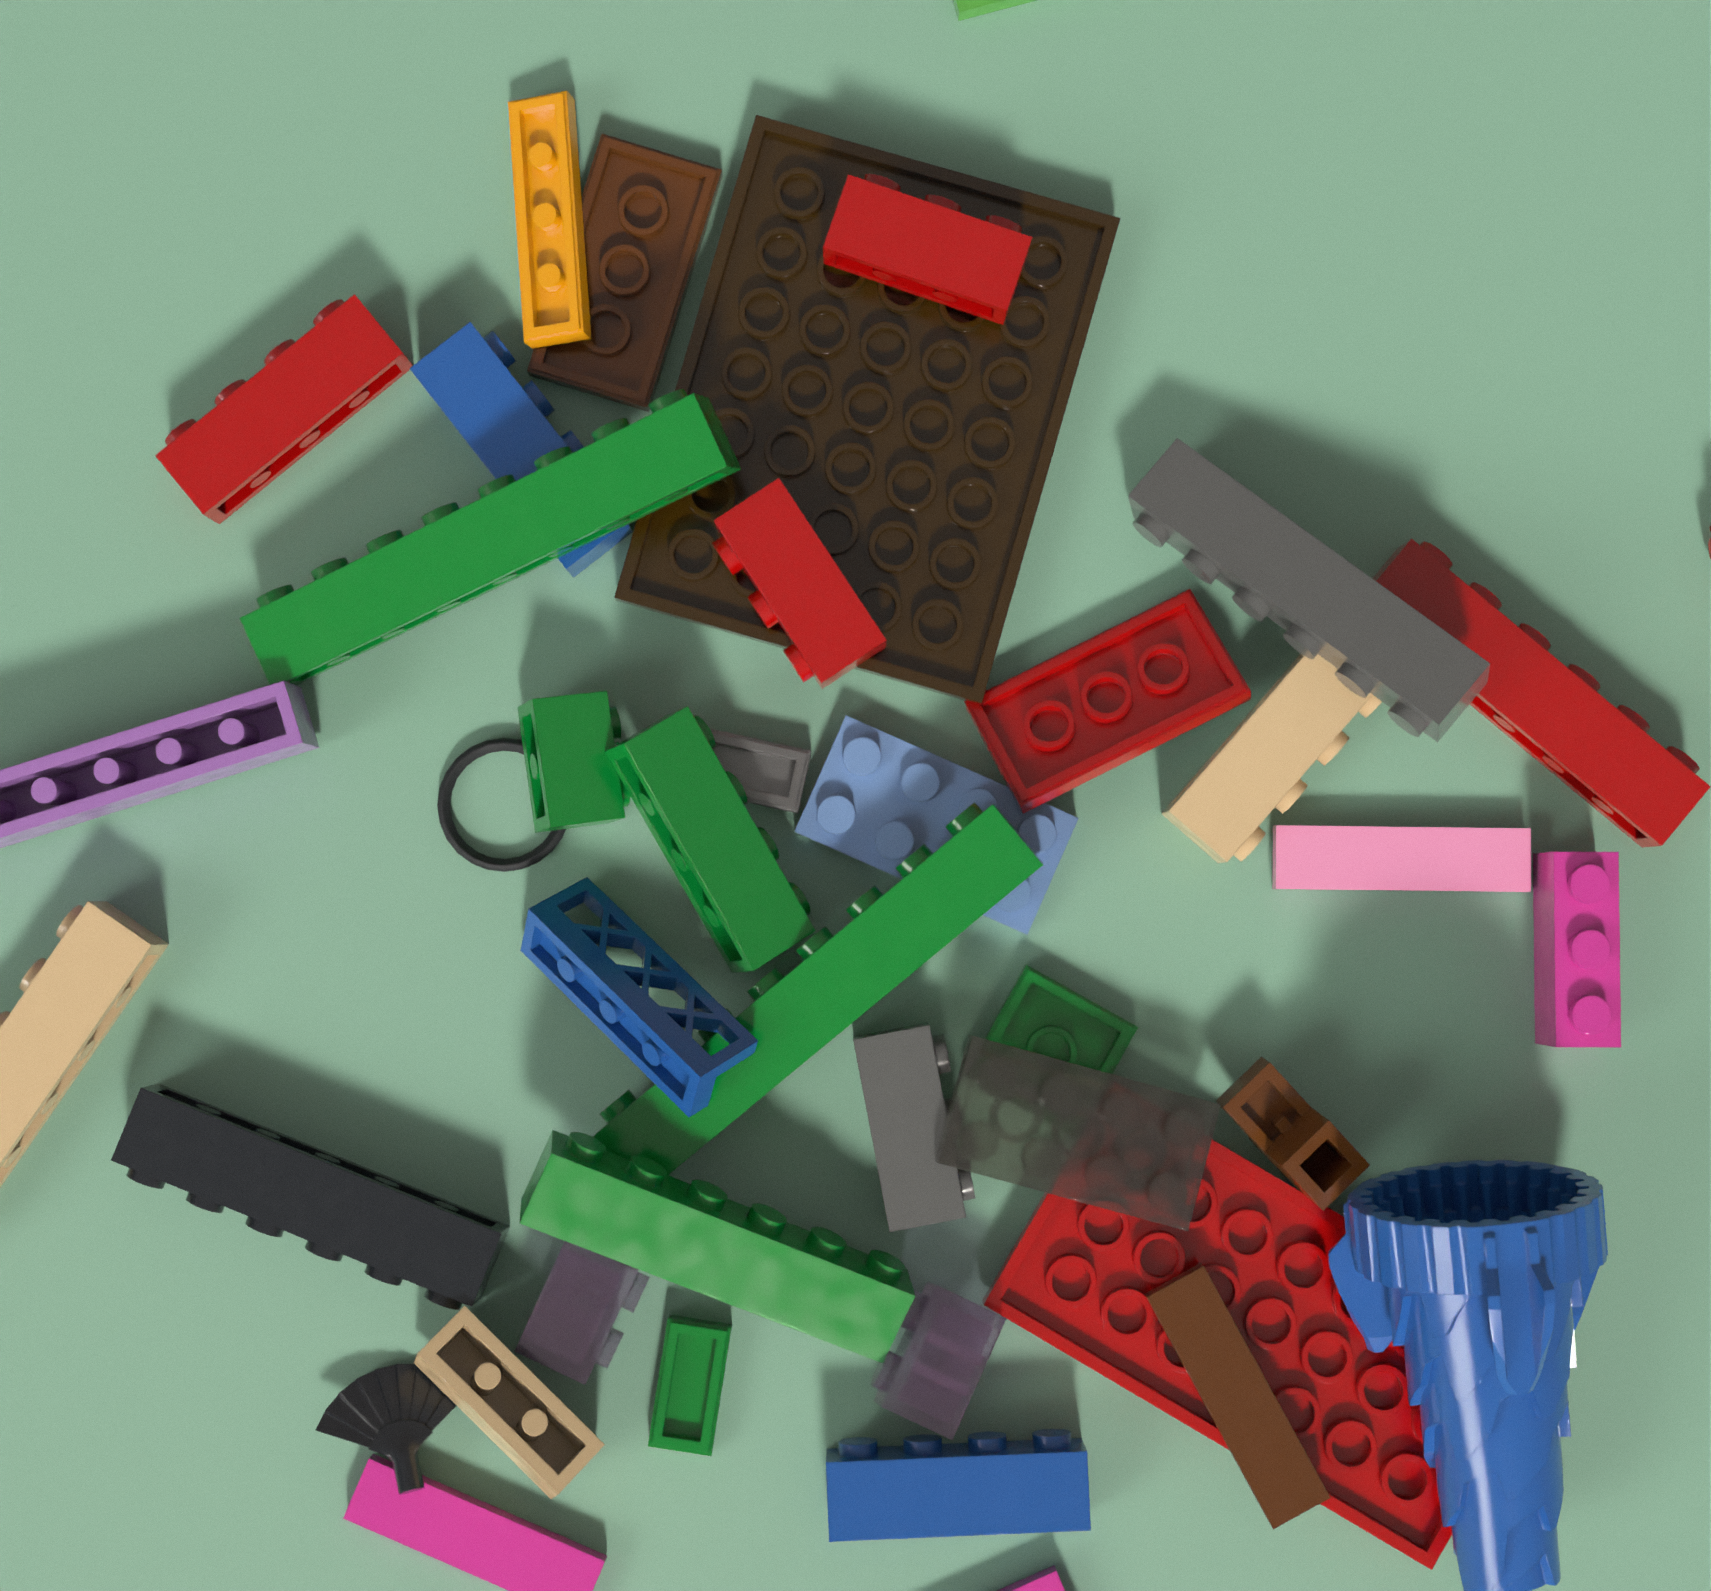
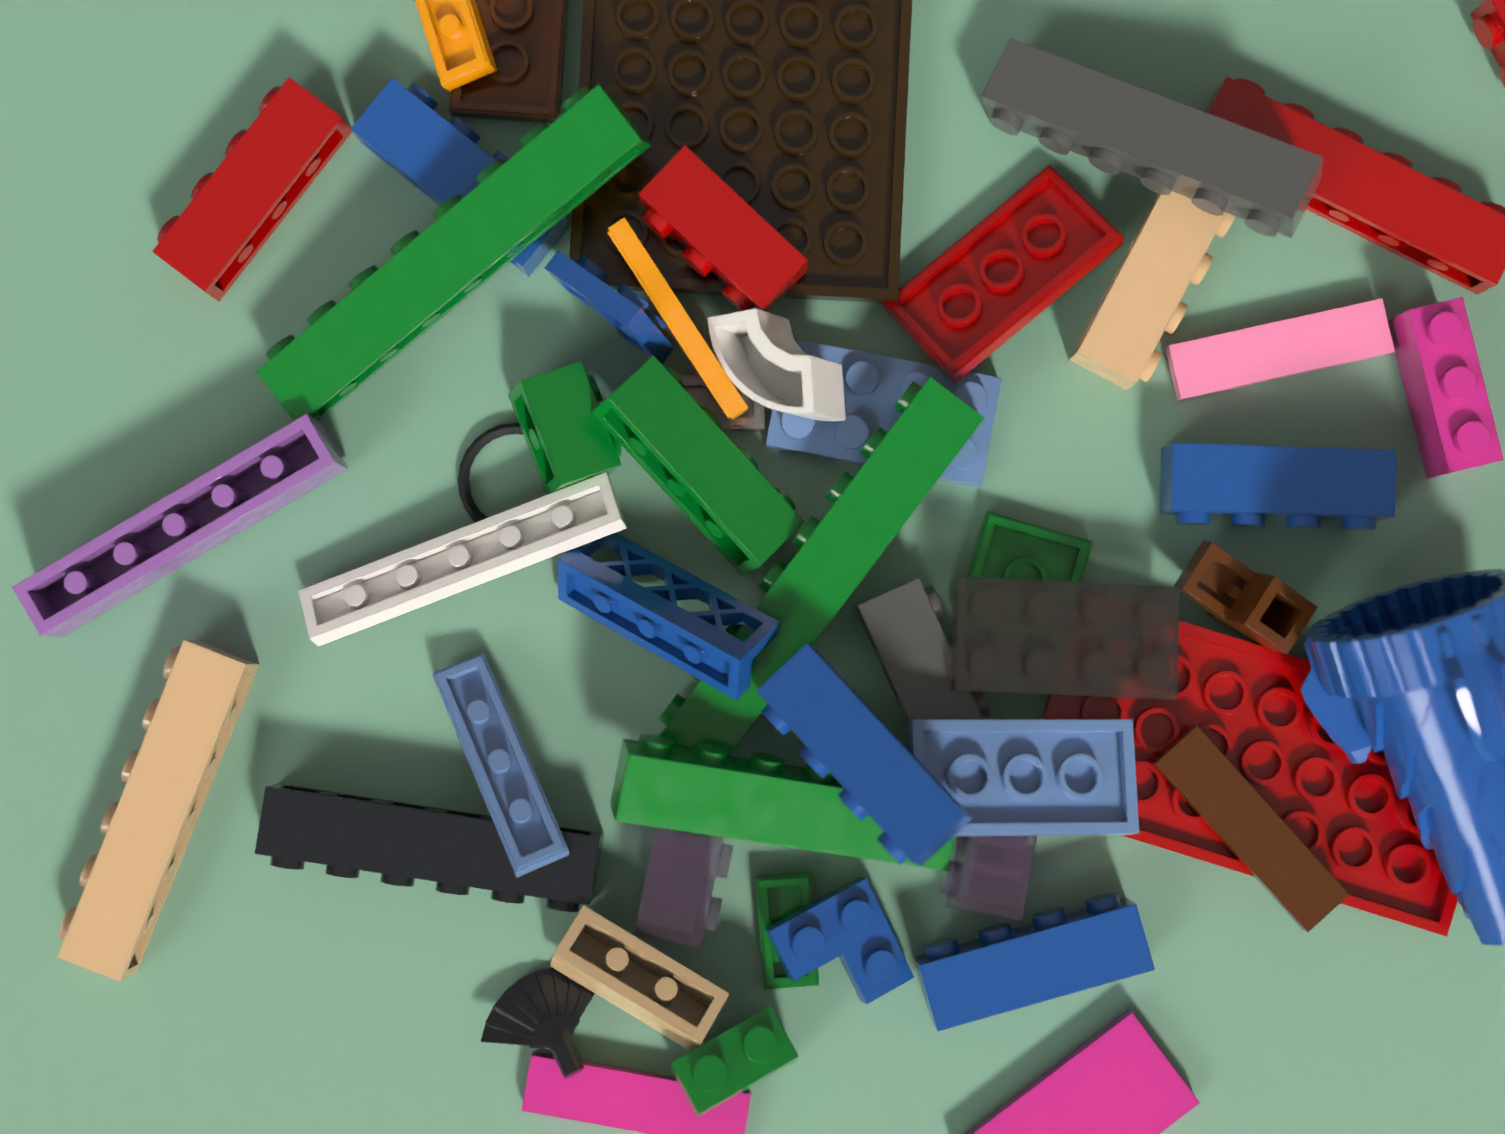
camera: 15 degrees left, 0 degrees up
(409, 1125) = (500, 765): none -> medium blue tile
(421, 882) = (461, 559): none -> white plate
(592, 1521) = (733, 1061): none -> green brick
(664, 643) = (621, 308): none -> blue plate
(725, 670) = (677, 319): none -> light orange tile
(752, 1395) = (844, 926): none -> blue plate
(814, 1216) = (863, 755): none -> blue brick
(820, 752) = (773, 369): none -> white brick
(990, 1280) = (1034, 774): none -> medium blue plate
(1362, 1010) = (1277, 483): none -> blue brick

